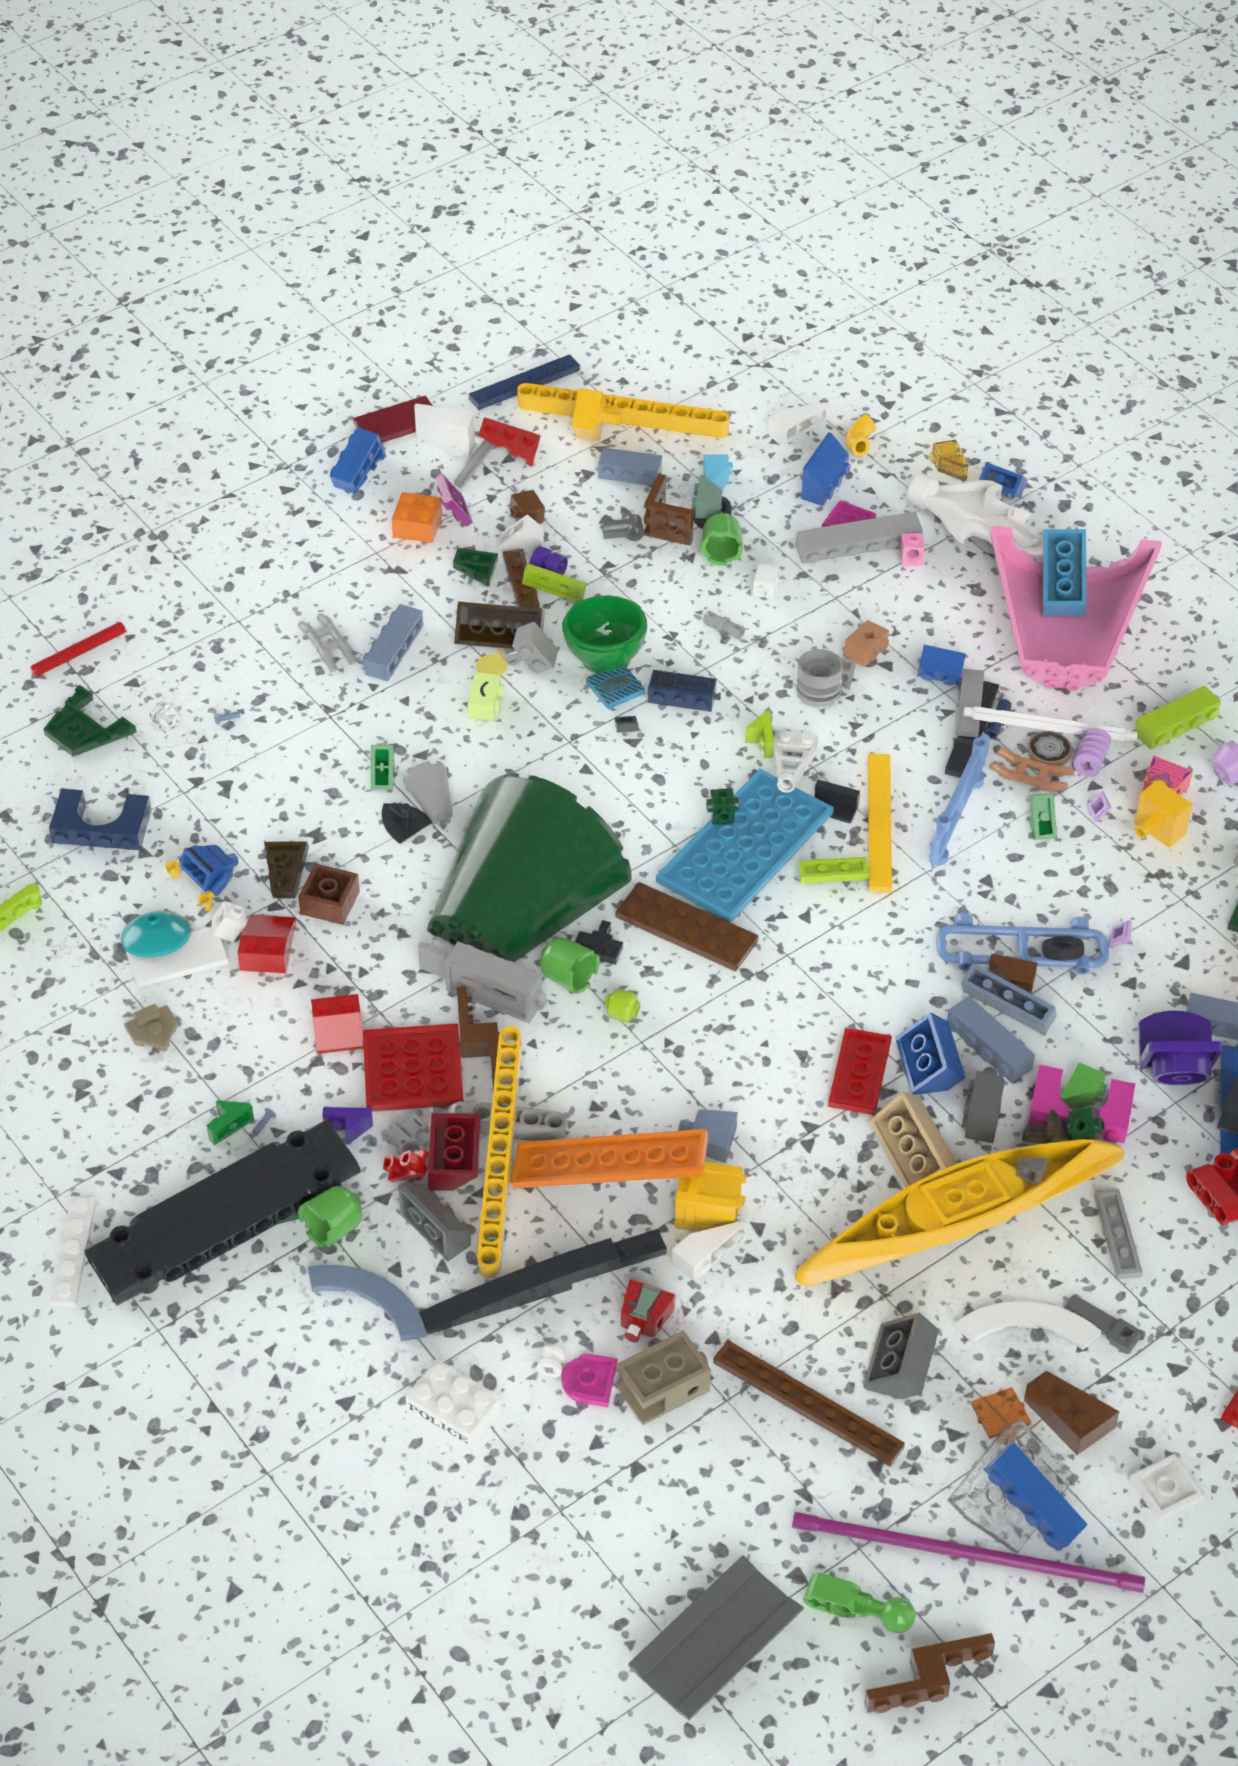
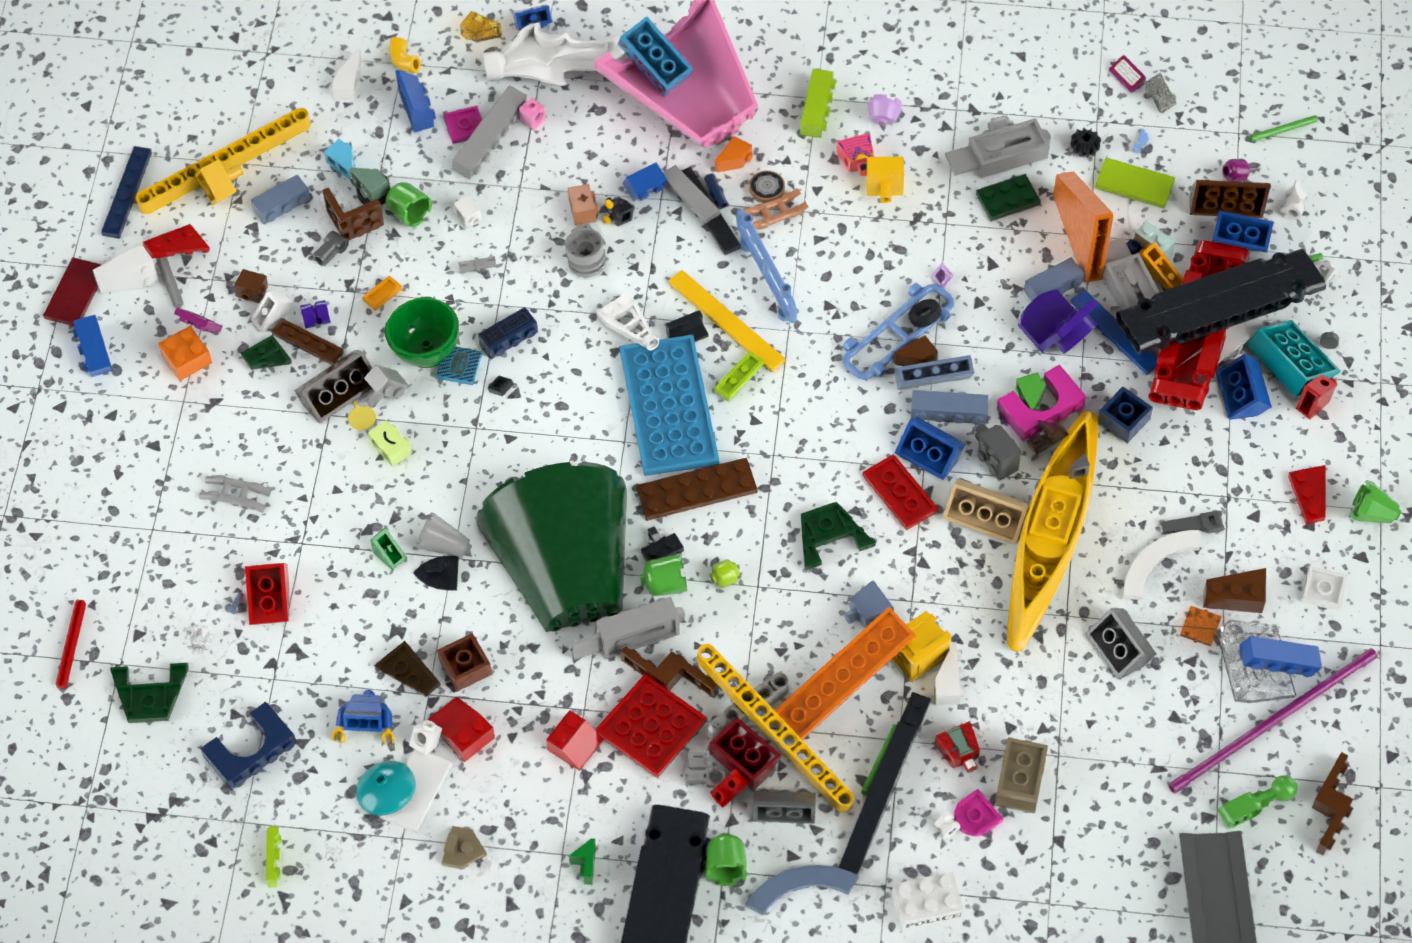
camera: 45 degrees left, 10 degrees up
(256, 725) = (267, 593): none -> red slope
(264, 1120) = (603, 834): sand blue piece -> none
(352, 1120) = (658, 791): dark purple slope -> none
(393, 642) = (282, 455): sand blue brick -> none
(553, 583) = (337, 325): lime plate -> none
(626, 589) = (382, 293): none -> light orange tile
(722, 805) = (634, 390): dark green brick -> none
(755, 1041) = (826, 526): none -> dark green wing
(761, 731) = (593, 318): lime slope -> none
(809, 1403) = (1103, 715): reddish brown plate -> none
(893, 670) = (619, 210): none -> black piece
(1042, 816) = (817, 236): slope -> none
(1046, 723) = (752, 169): white piece -> none
(1047, 702) = (734, 155): none -> orange slope
(1085, 1124) = (1063, 410): dark green brick -> none
(1092, 752) = (797, 168): lavender piece -> none
(1099, 806) = (839, 201): lavender slope -> none
(1118, 1234) = (1142, 464): light grey tile -> none
(1148, 1175) = (1125, 414): none -> dark blue brick

